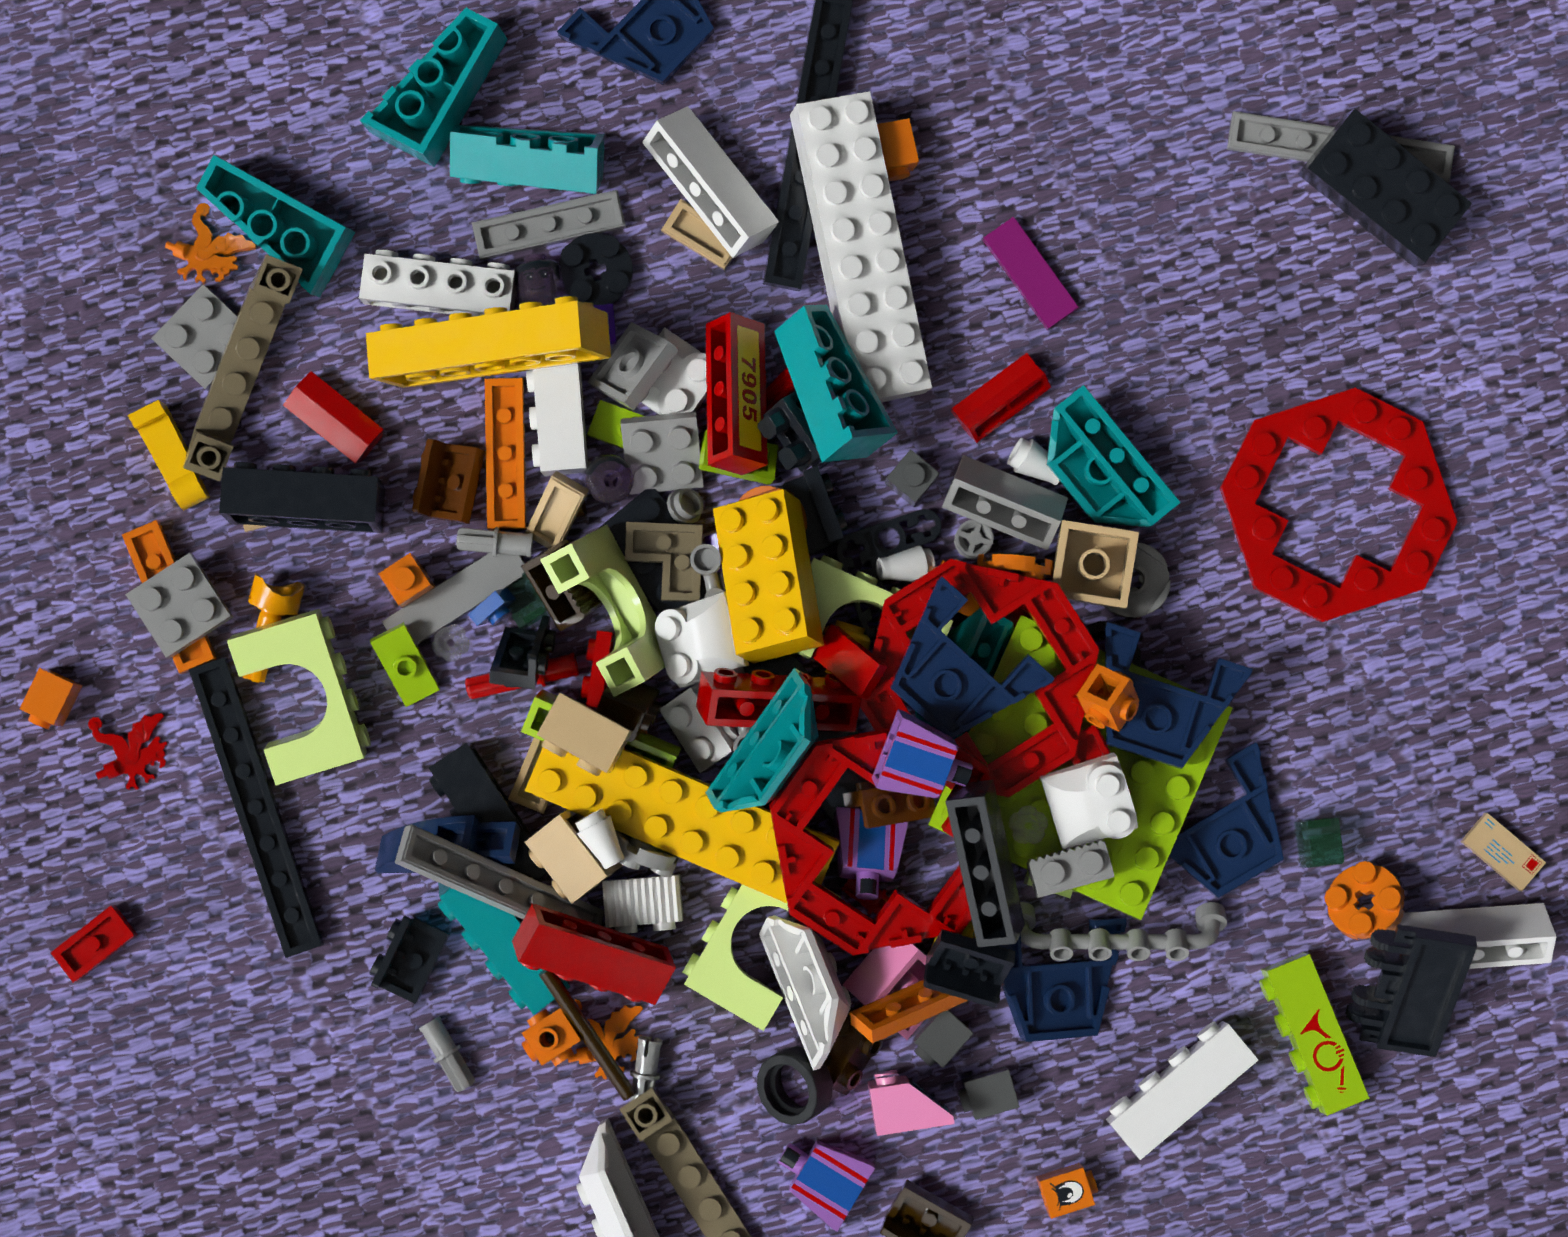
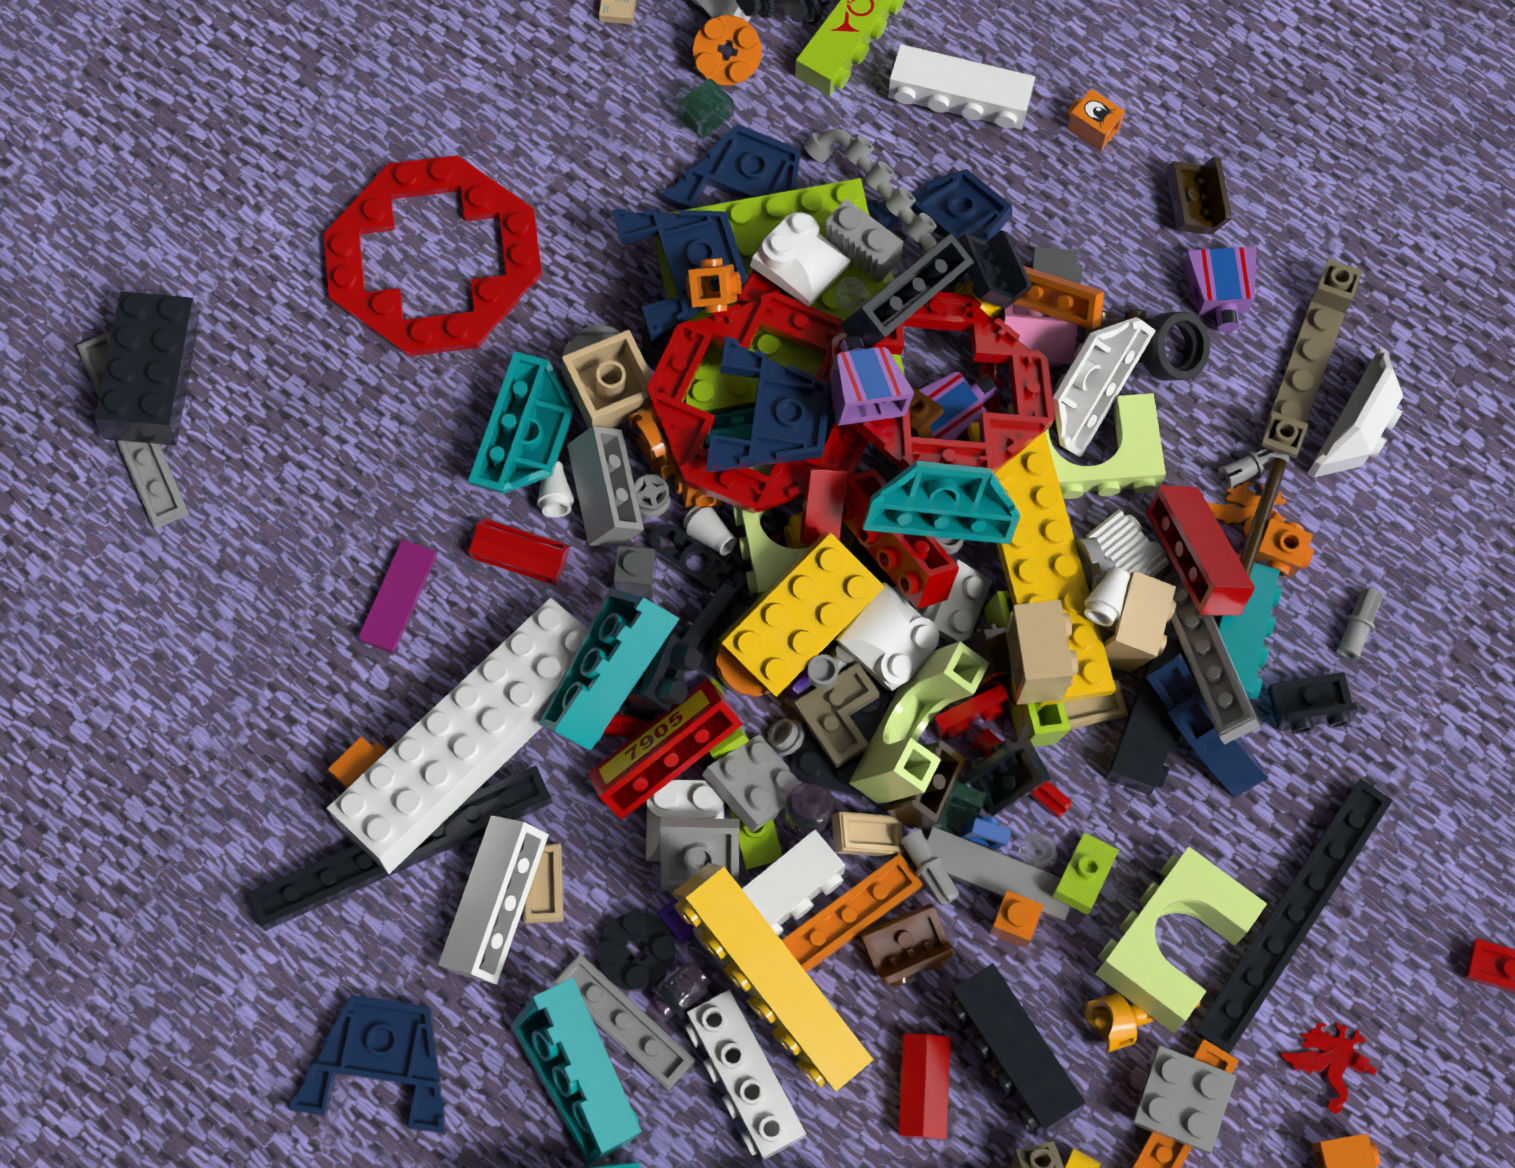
camera: 125 degrees left, 15 degrees down
(904, 1105) = (1128, 258): bright pink slope -> none
(988, 1093) = (1068, 213): dark grey brick -> none

